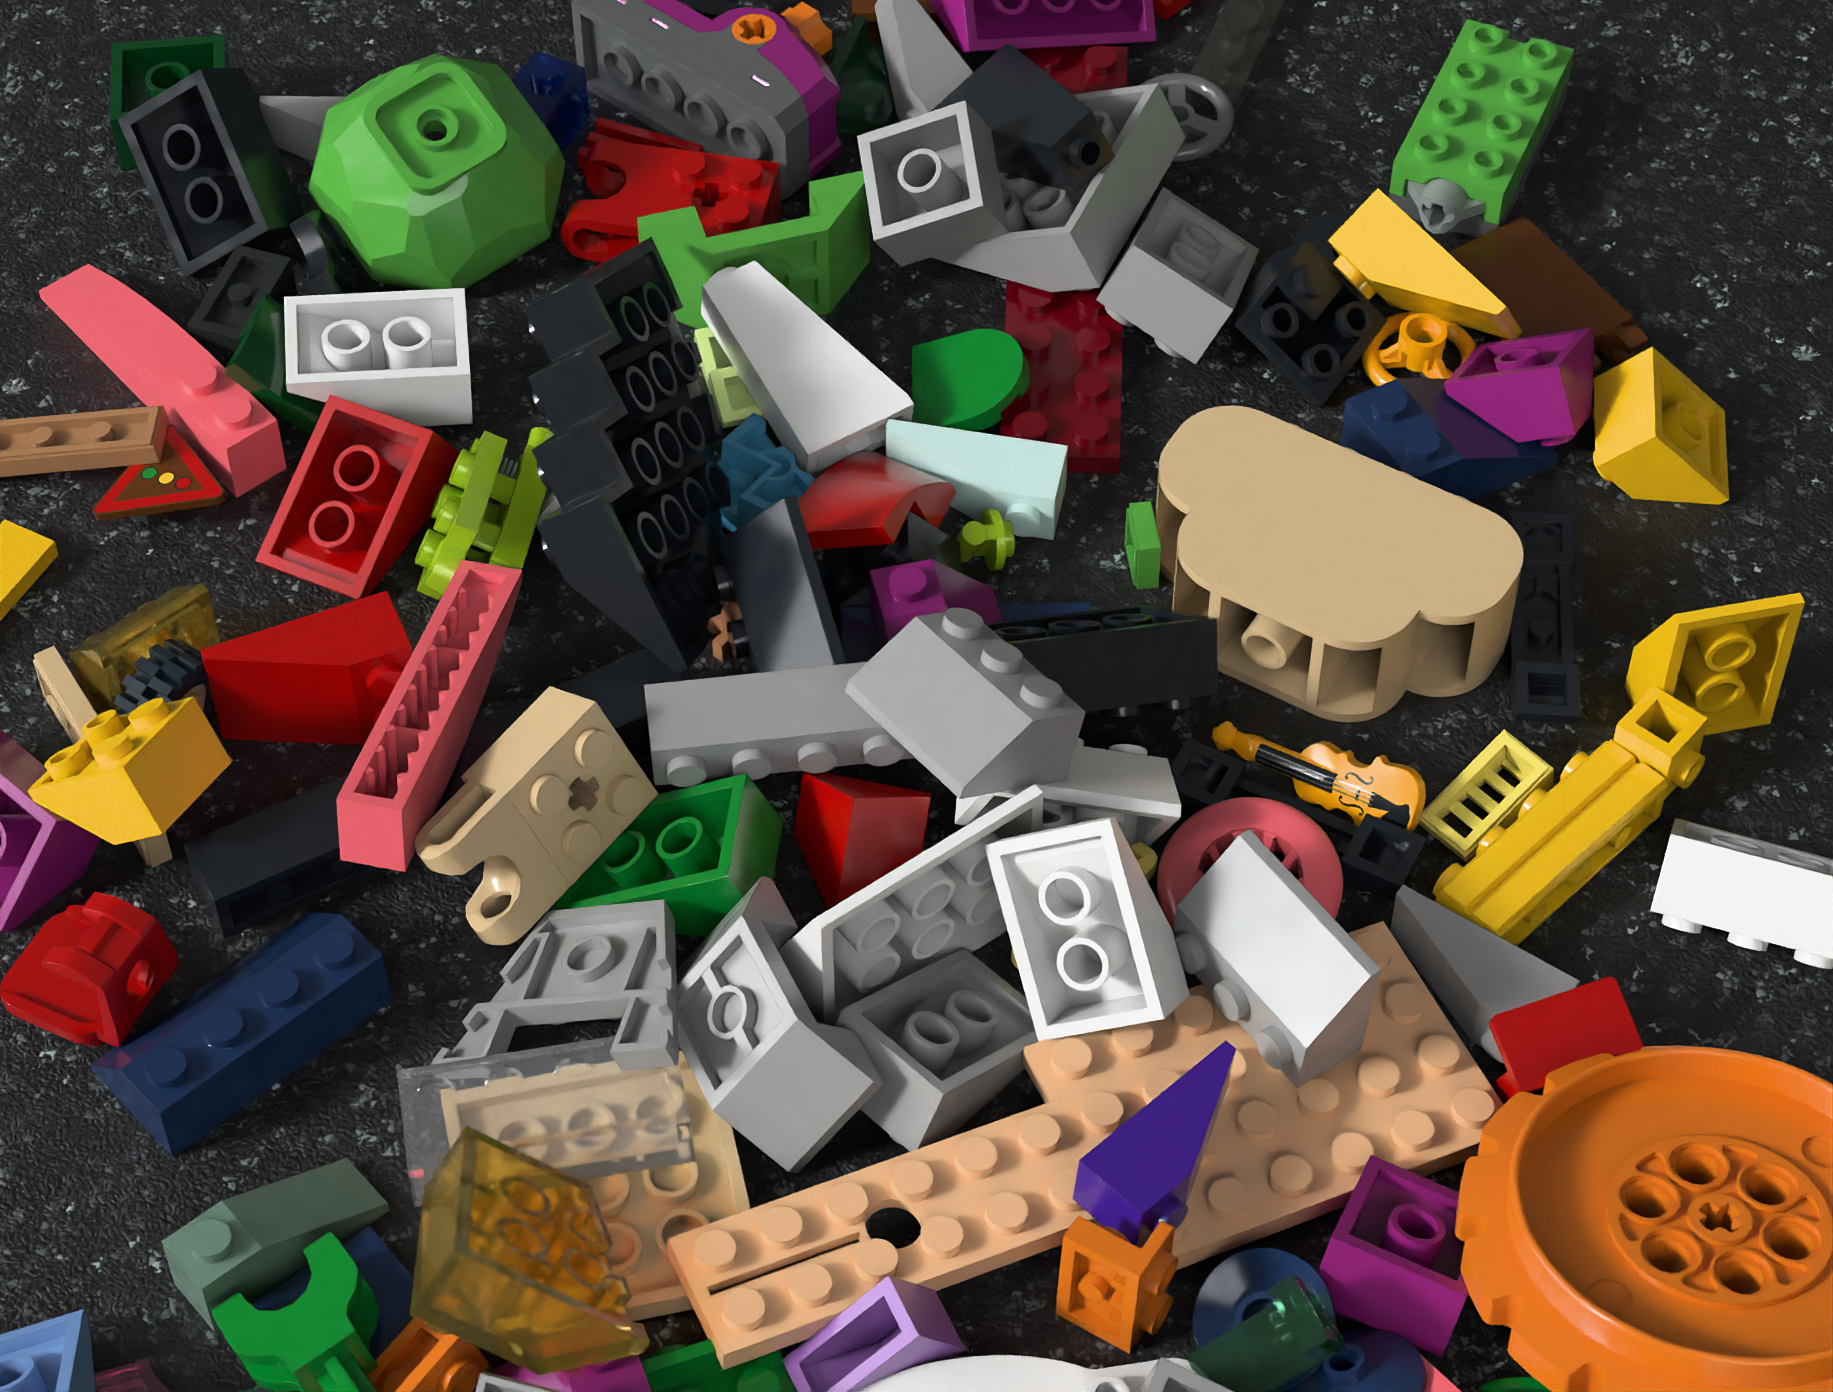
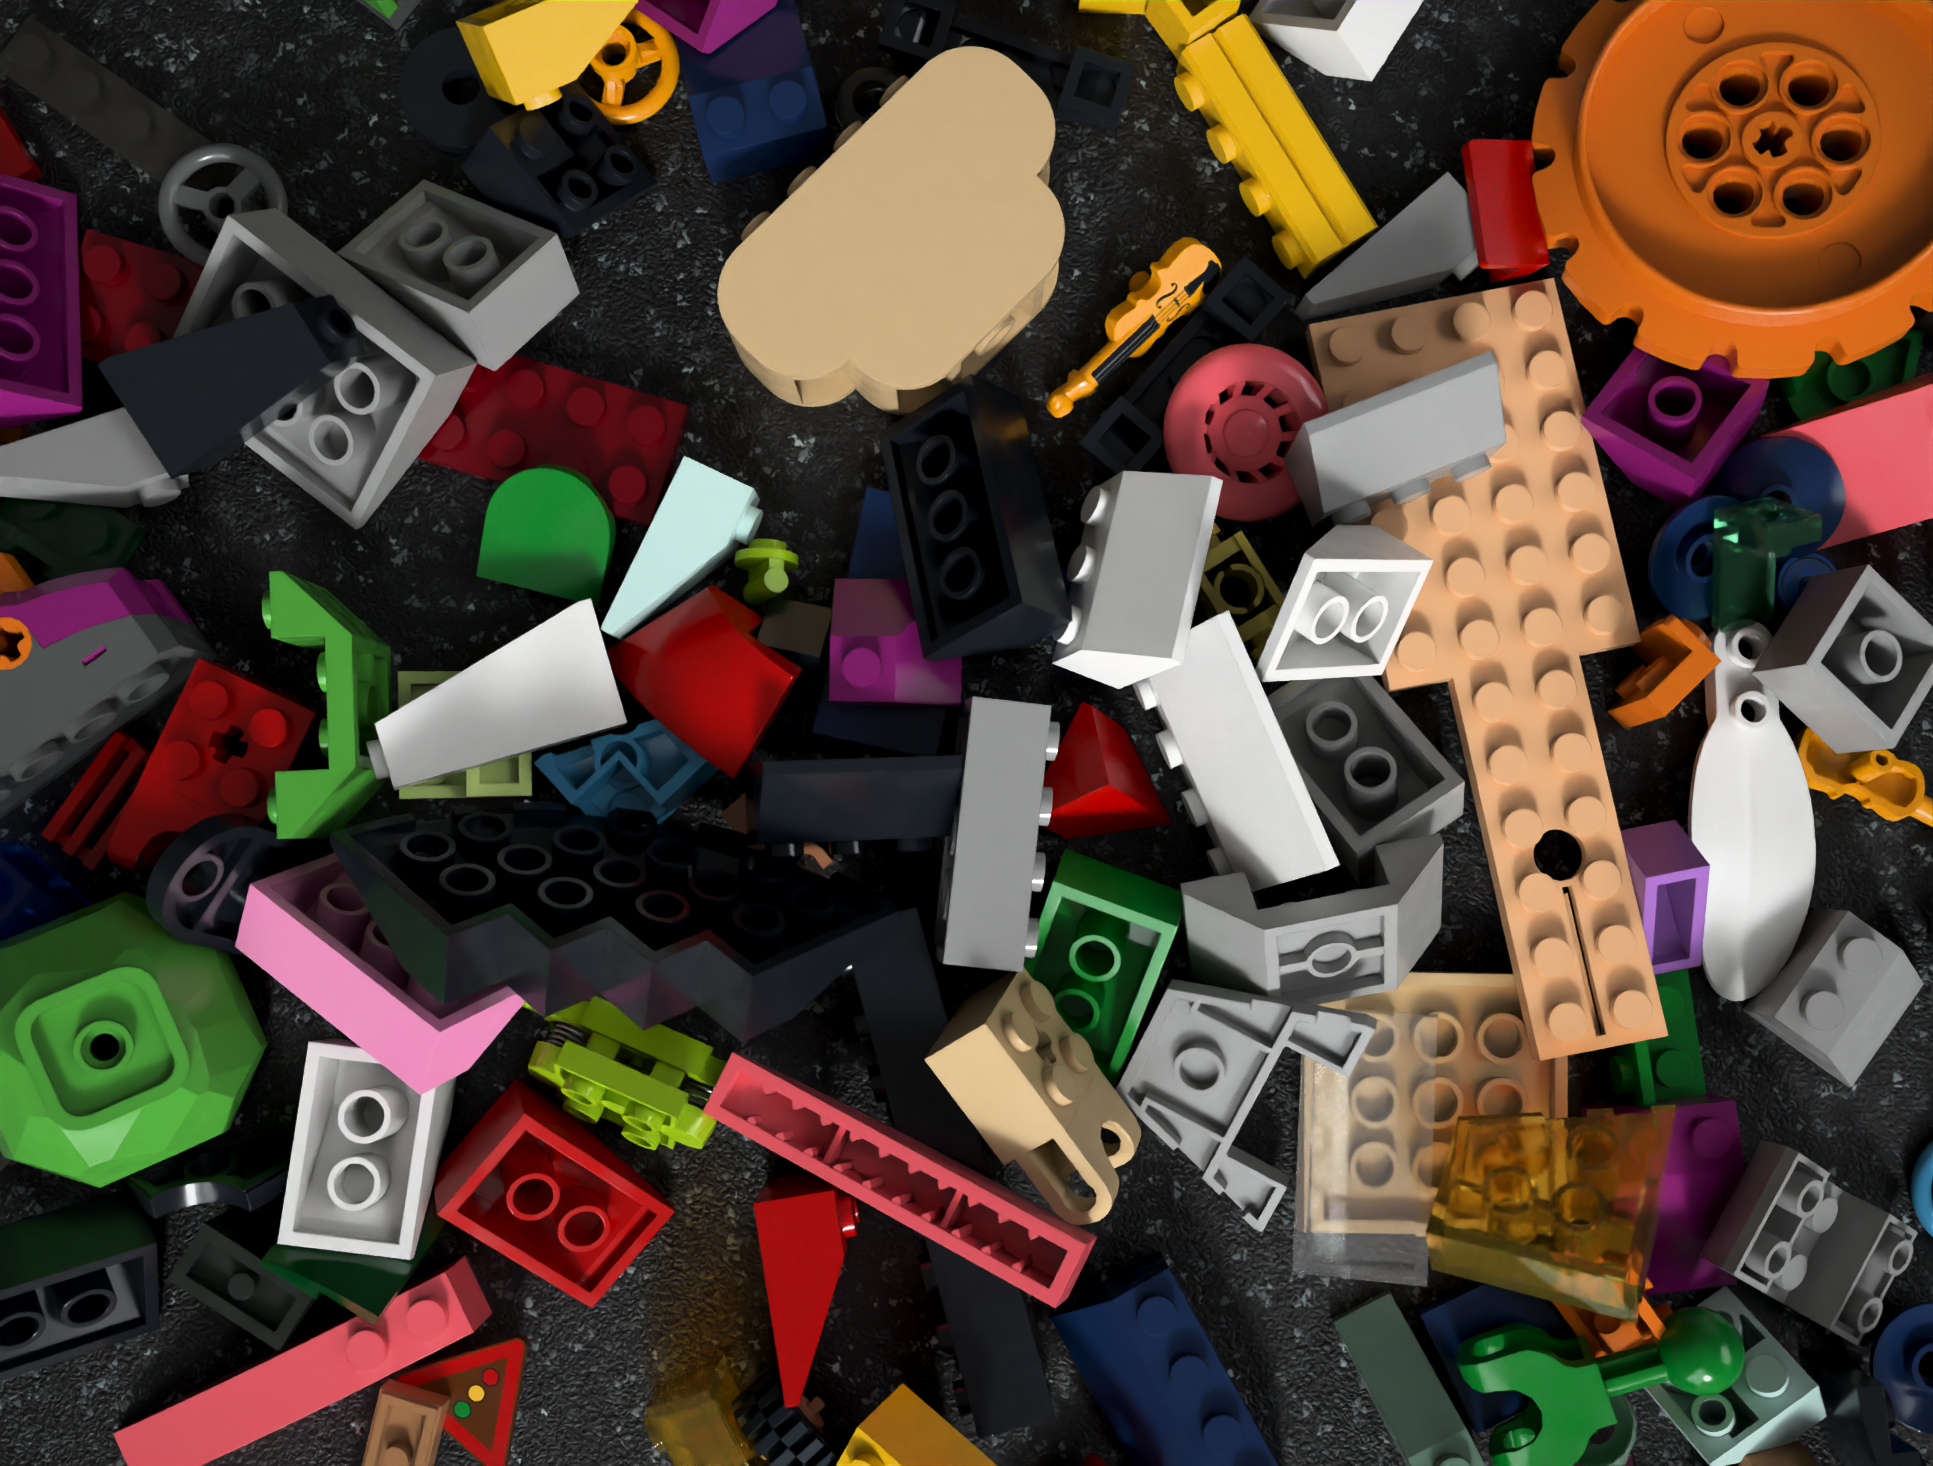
camera: 80 degrees left, 35 degrees up
(491, 335) = (330, 953): none -> bright pink slope
(583, 214) = (231, 856): none -> black tile
(932, 183) = (310, 503): light grey brick -> none
(969, 705) = (1090, 657): light grey slope -> none
(1142, 545) = (812, 415): bright green tile -> none
(1153, 1158) = (1573, 607): dark purple slope -> none
(1501, 753) = (1198, 153): light yellow slope -> none

